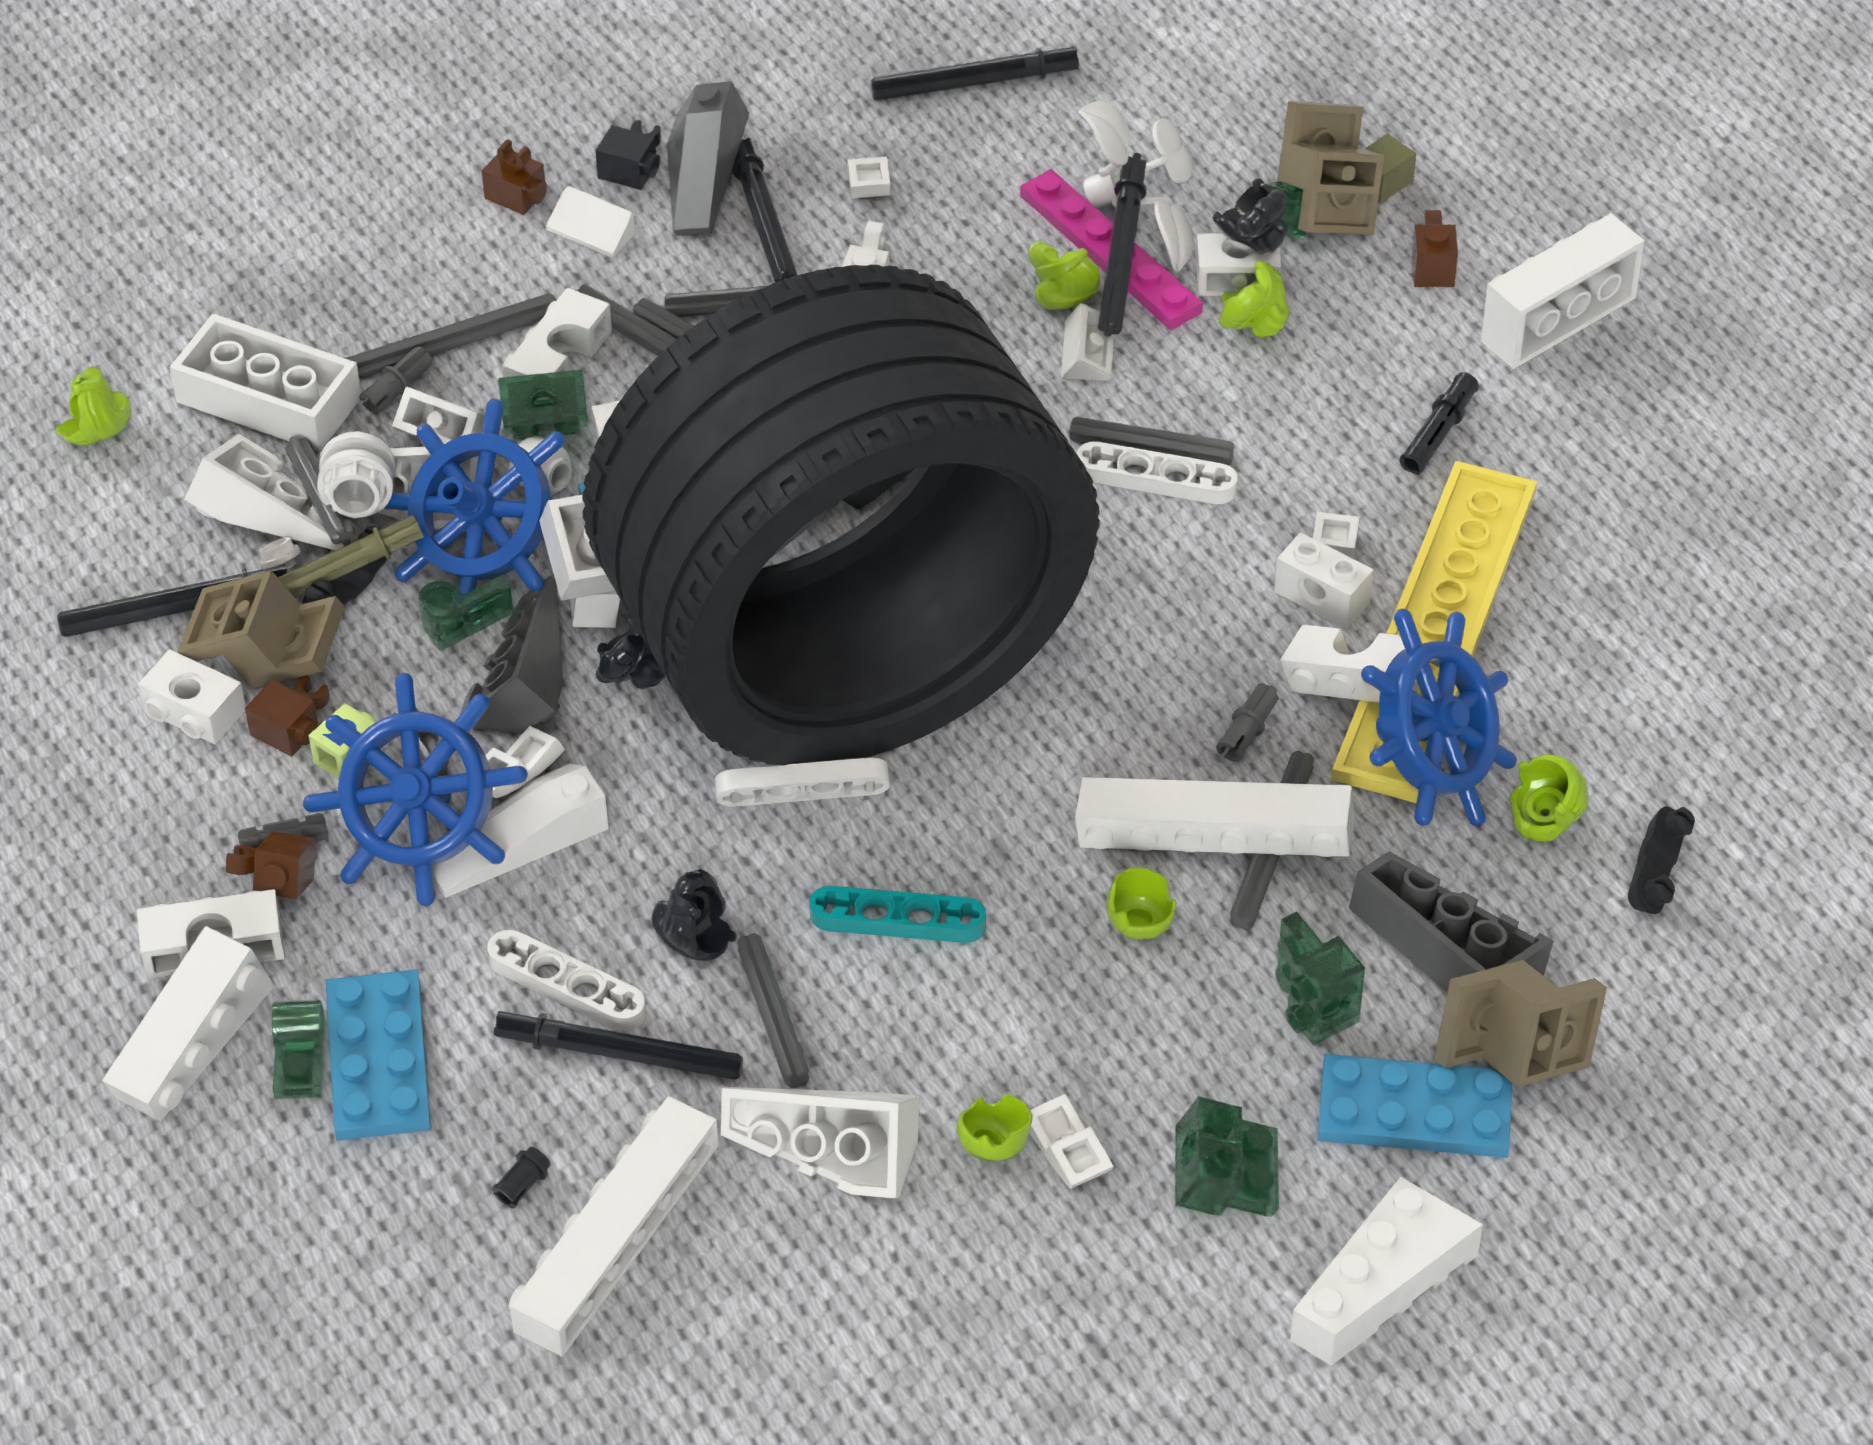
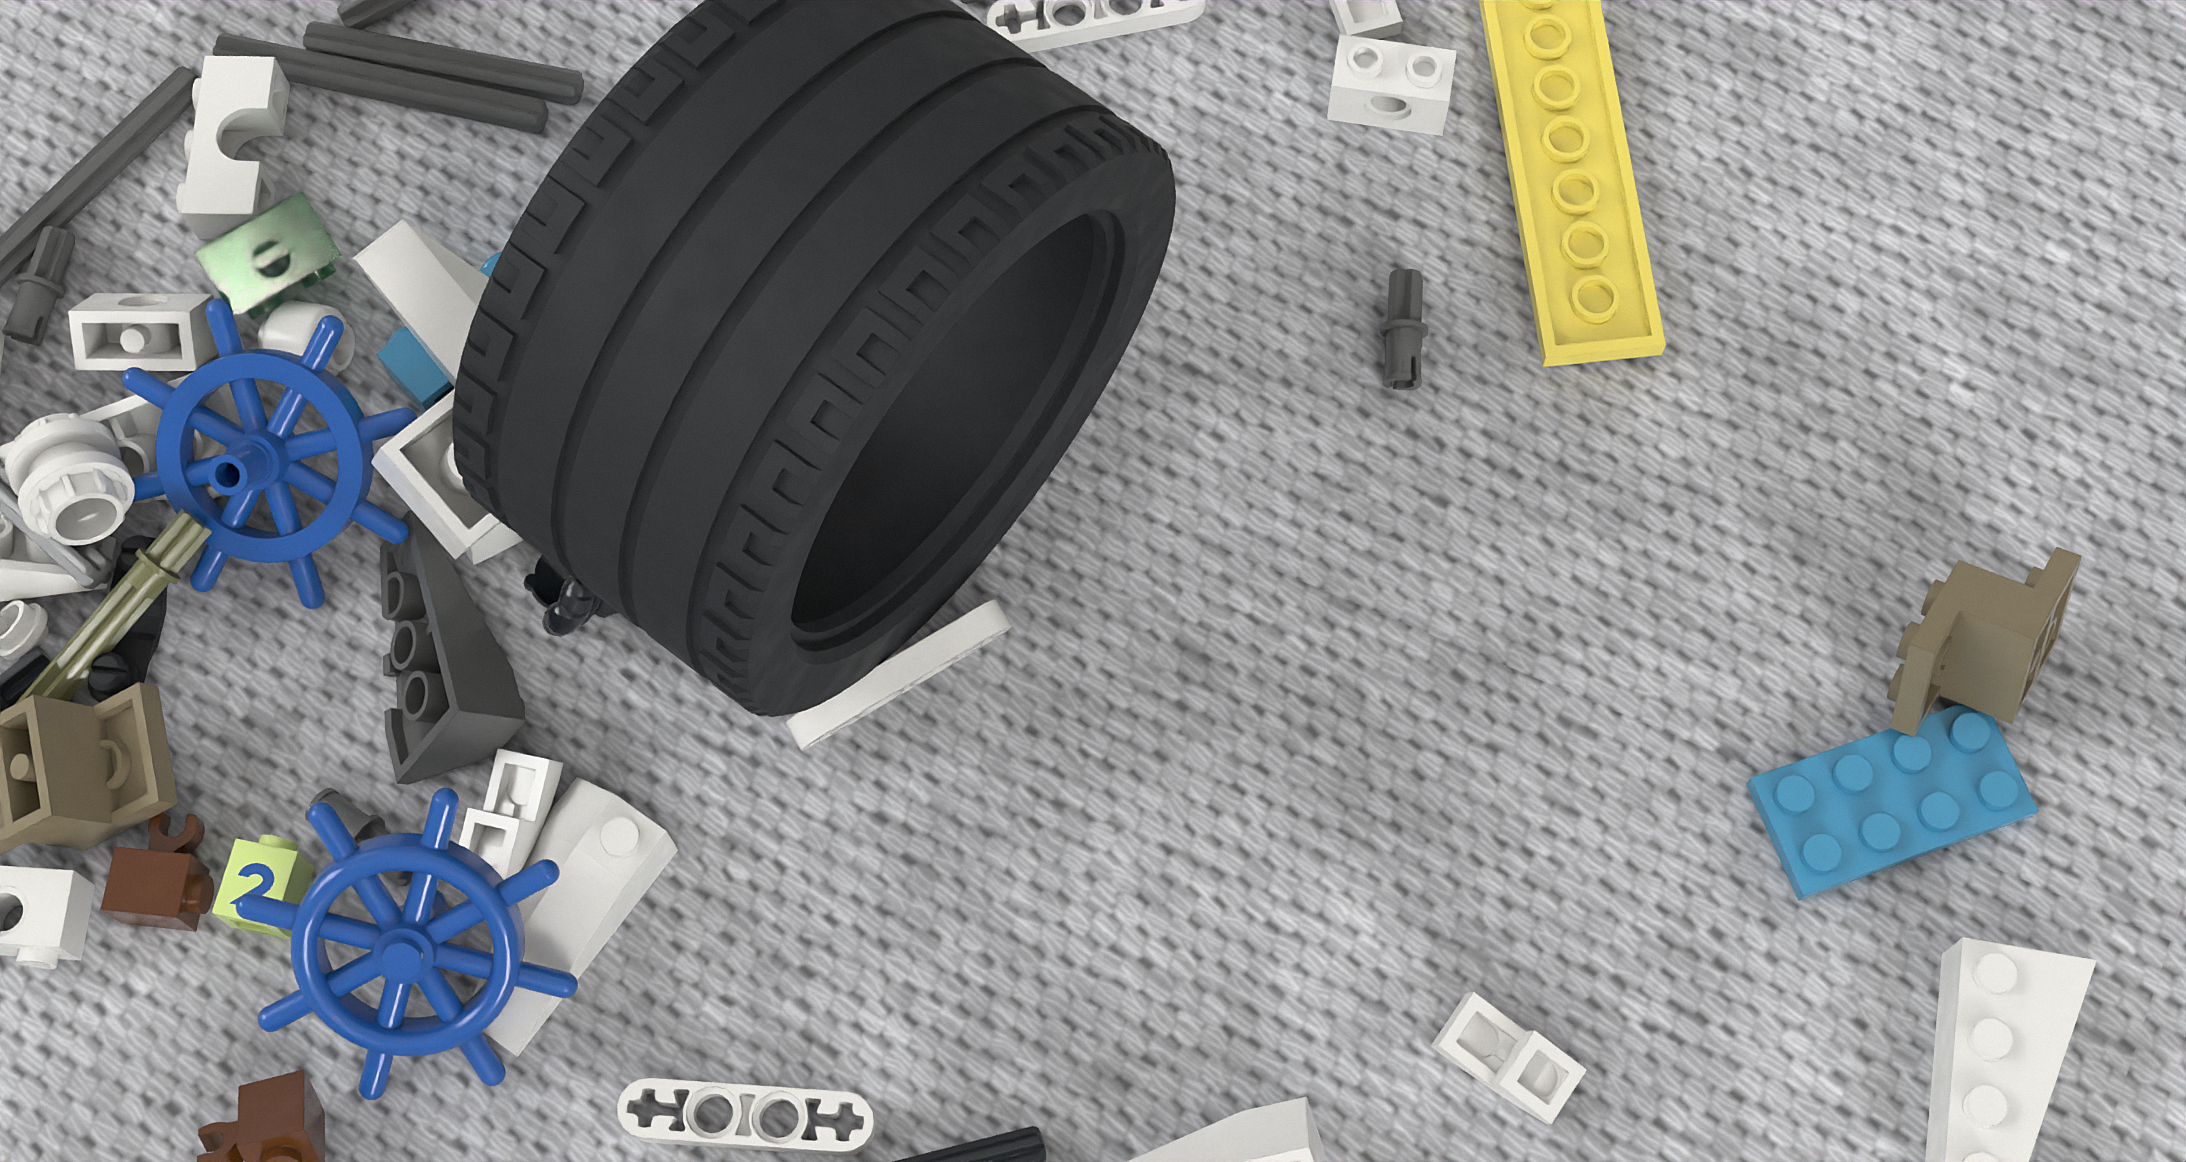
camera: 25 degrees left, 20 degrees up
(313, 827) = (247, 1065): dark grey axle -> none
(451, 616) = (322, 616): clear green plate -> none
(692, 919) = (870, 957): black hair -> none
(773, 1010) = (1038, 1035): dark grey axle -> none
(898, 907) = (1115, 804): teal beam -> none
(995, 1129) = (1418, 1089): lime hair -> none
(1140, 903) = (1421, 666): lime hair -> none
(1215, 816) = (1452, 499): white brick -> none
(1225, 1161) = (1721, 1000): clear green brick -> none
(1263, 865) = (1520, 489): dark grey axle -> none
(1320, 980) = (1708, 689): clear green brick -> none
(1321, 663) = (1550, 202): white arch -> none
(1438, 718) = (1666, 246): blue piece -> none
(1438, 927) = (1815, 541): dark grey wedge -> none
(1549, 786) = (1838, 271): lime hair -> none
(1657, 856) = (1997, 358): black piece -> none

